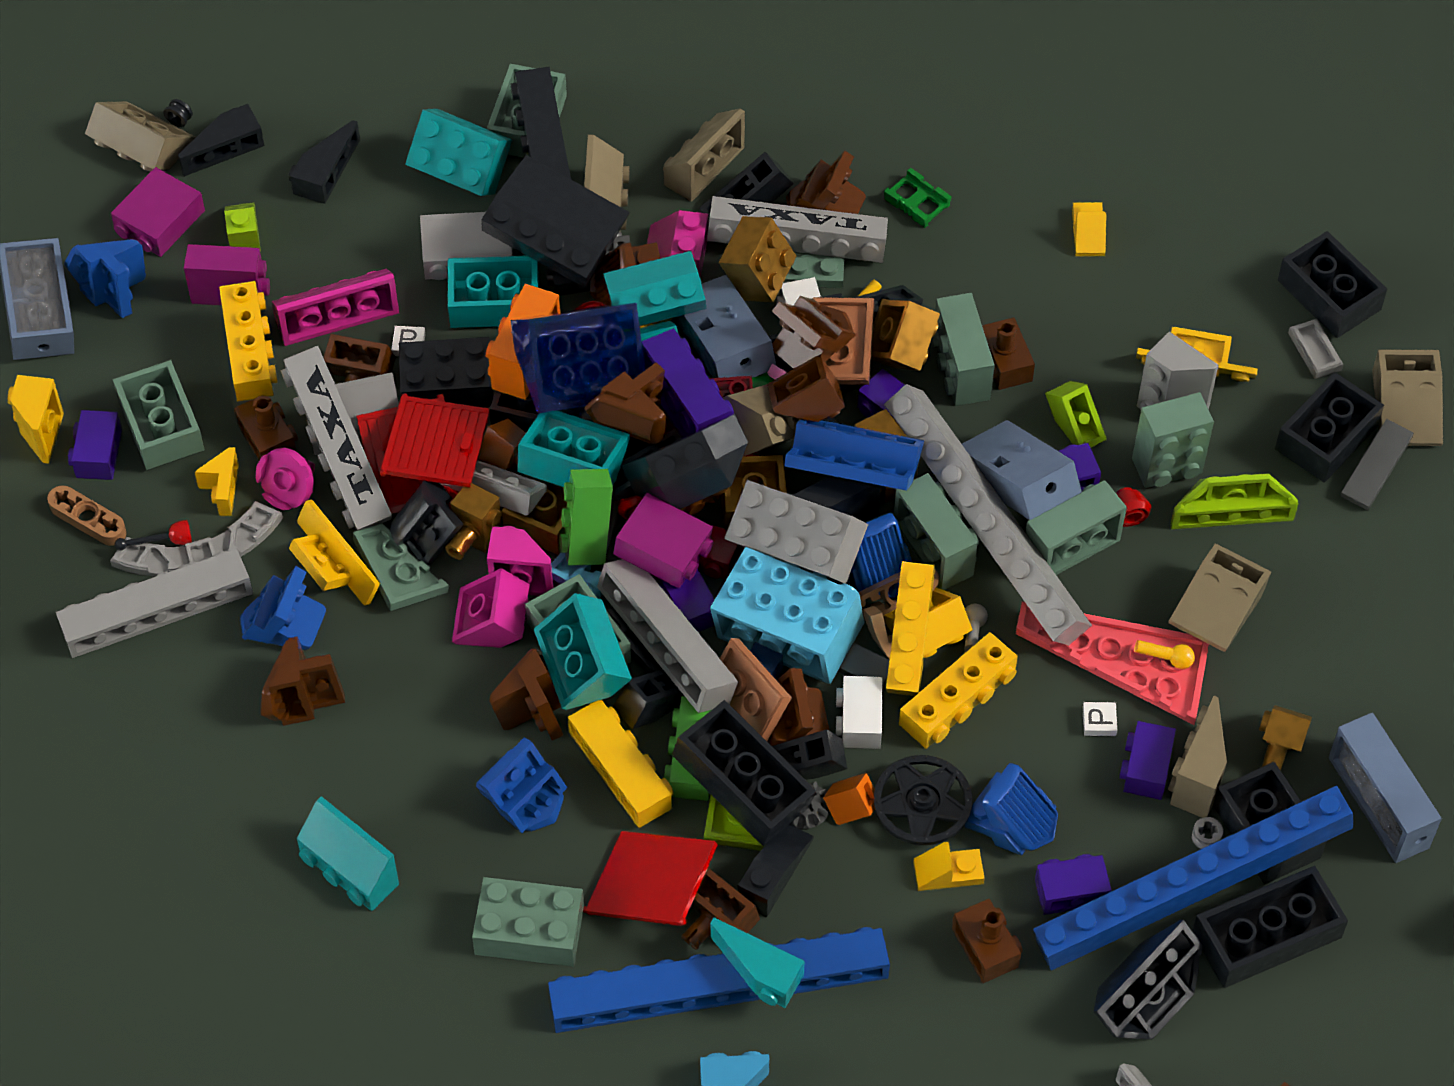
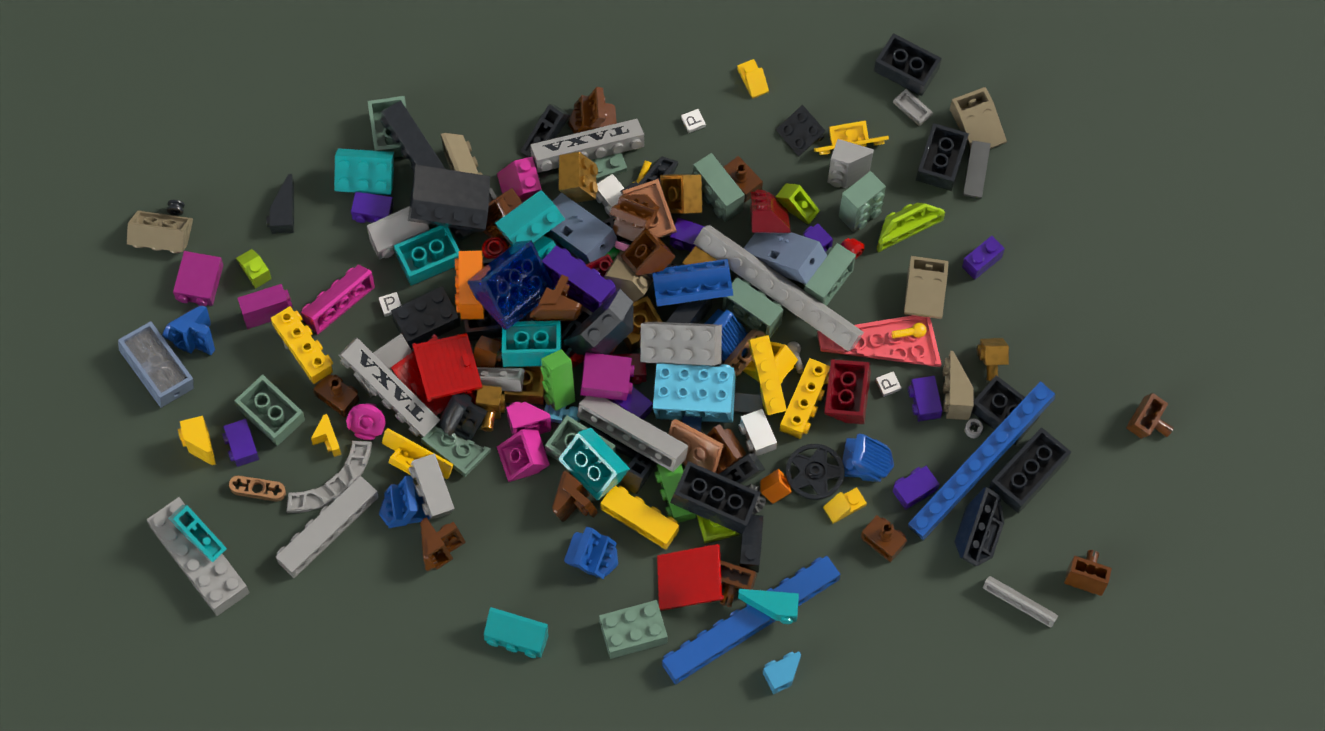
camera: 25 degrees left, 10 degrees up
(178, 533) = (318, 478): hinge -> none
(225, 138) = (215, 211): black slope -> none
(325, 598) = (431, 487): none -> light grey slope
(357, 357) = (371, 330): reddish brown brick -> none
(443, 197) = (371, 207): none -> dark purple brick
(706, 154) = (509, 115): dark tan slope -> none
(877, 628) = (745, 379): light nougat slope -> none
(923, 192) = (647, 90): green piece -> none
(972, 254) = (693, 121): none -> white tile
(1019, 406) = (768, 213): none -> dark red slope
(1029, 702) = (848, 391): none -> dark red slope
(1128, 320) = (801, 130): none -> black hinge
(1331, 590) = (983, 257): none -> dark purple brick
(1384, 787) = (1058, 365): sand blue brick -> none

